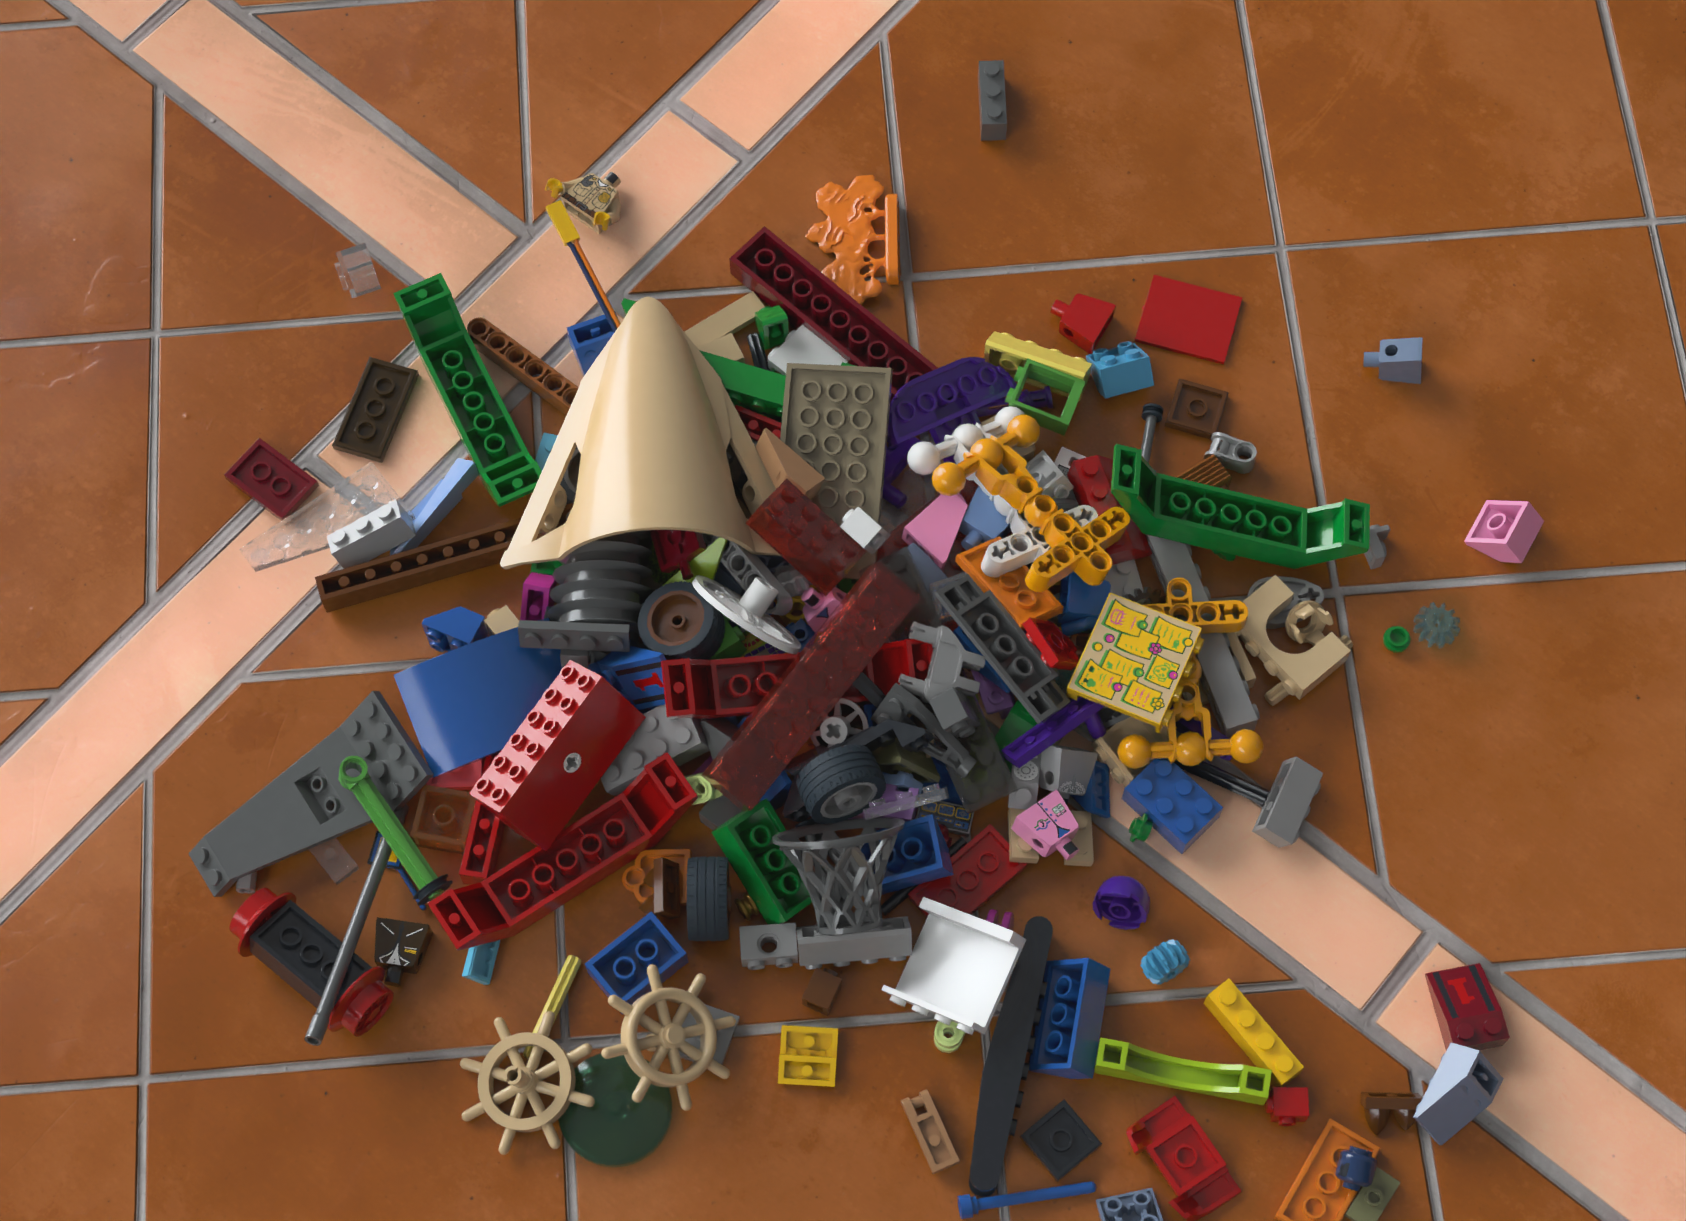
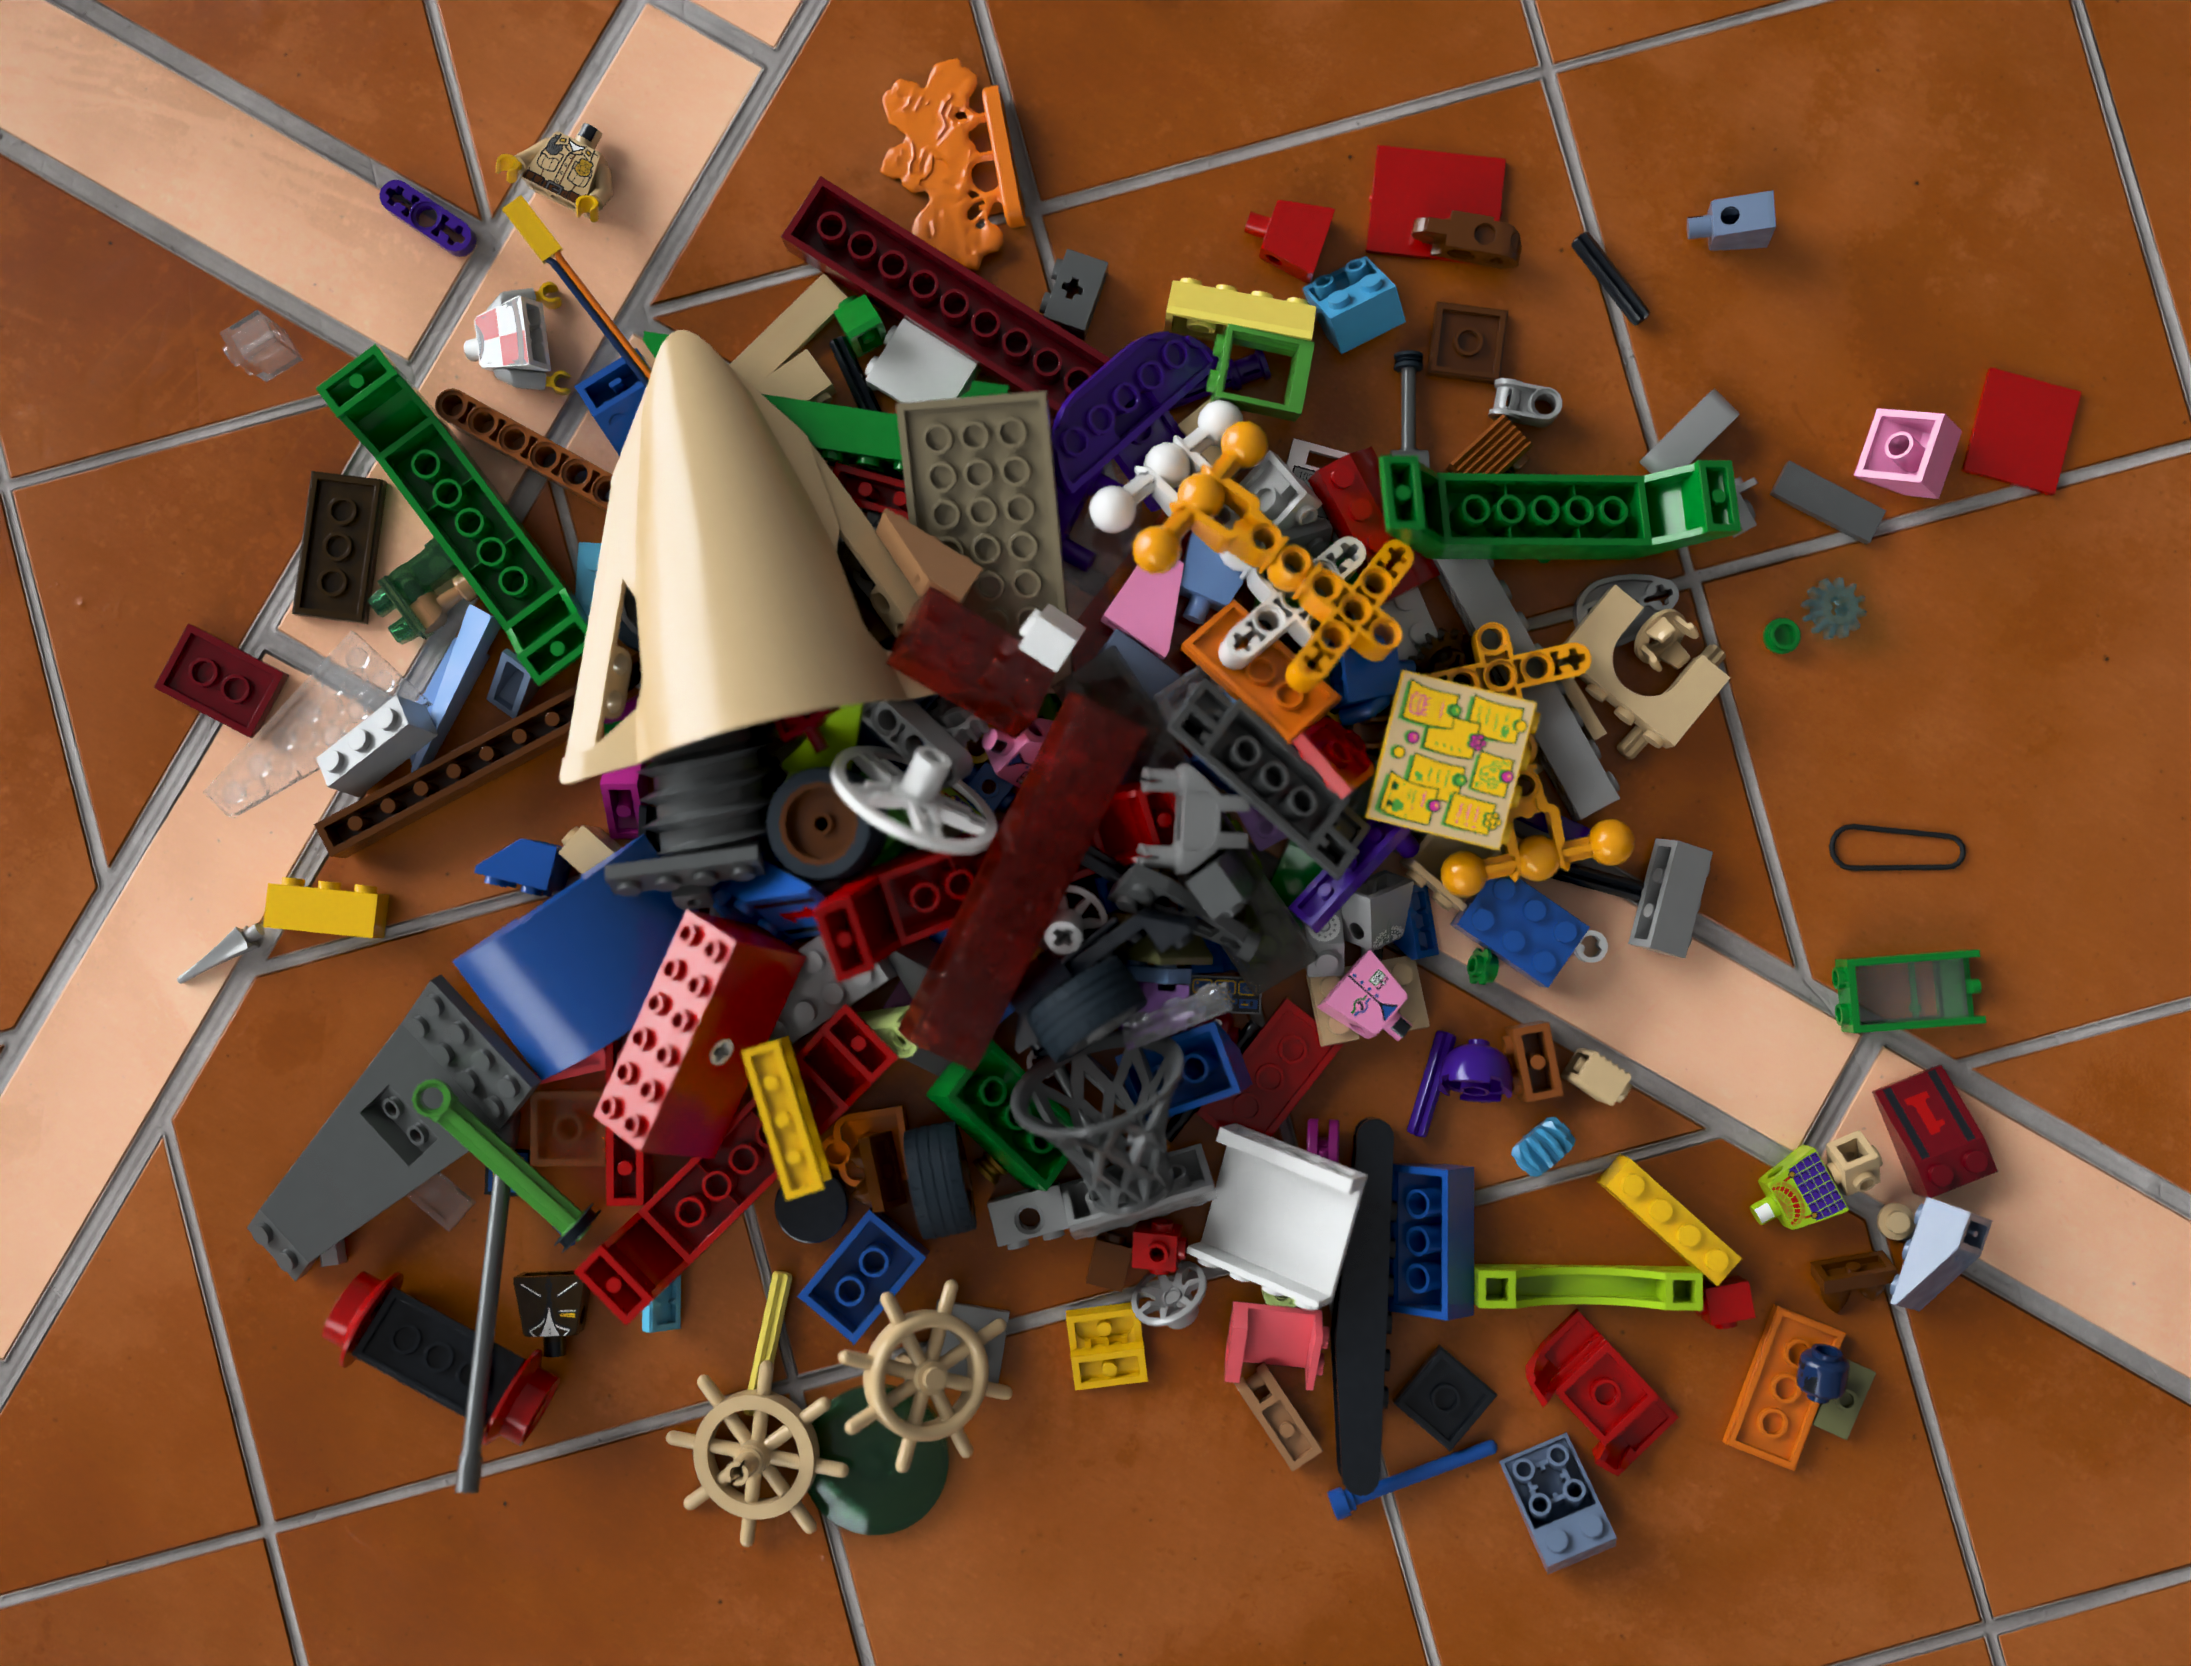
camera: 10 degrees left, 20 degrees up
(233, 656) = (234, 944): none -> light grey piece
(305, 642) = (326, 908): none -> yellow brick
(421, 443) = (412, 592): none -> clear green hips
(478, 512) = (512, 685): none -> sand blue slope
(491, 225) = (420, 204): none -> dark purple beam
(531, 297) = (514, 339): none -> torso
(607, 911) = (814, 1215): none -> black tile
(608, 820) = (787, 1117): none -> yellow fence
(854, 978) = (1158, 1246): none -> red brick
(866, 1026) = (1172, 1299): none -> light grey wheel
(926, 328) = (1077, 272): none -> dark grey brick
(937, 1066) = (1275, 1337): none -> coral panel
(1086, 911) = (1428, 1090): none -> dark purple axle
(1167, 899) = (1532, 1061): none -> dark orange brick
(1208, 340) = (1471, 239): none -> reddish brown piece
(1213, 916) = (1597, 1076): none -> tan brick
(1232, 829) = (1601, 944): none -> white bush
(1305, 384) = (1610, 278): none -> black axle
(1356, 486) = (1691, 434): none -> light grey beam
(1357, 1034) = (1798, 1191): none -> torso
(1400, 1017) = (1853, 1163): none -> tan brick
(1426, 1069) = (1895, 1221): none -> tan plate
(1442, 555) = (1827, 502): none -> dark grey tile
(1458, 900) = (1906, 991): none -> door
(1468, 791) = (1896, 831): none -> black piece
(1590, 533) = (2021, 431): none -> red piece

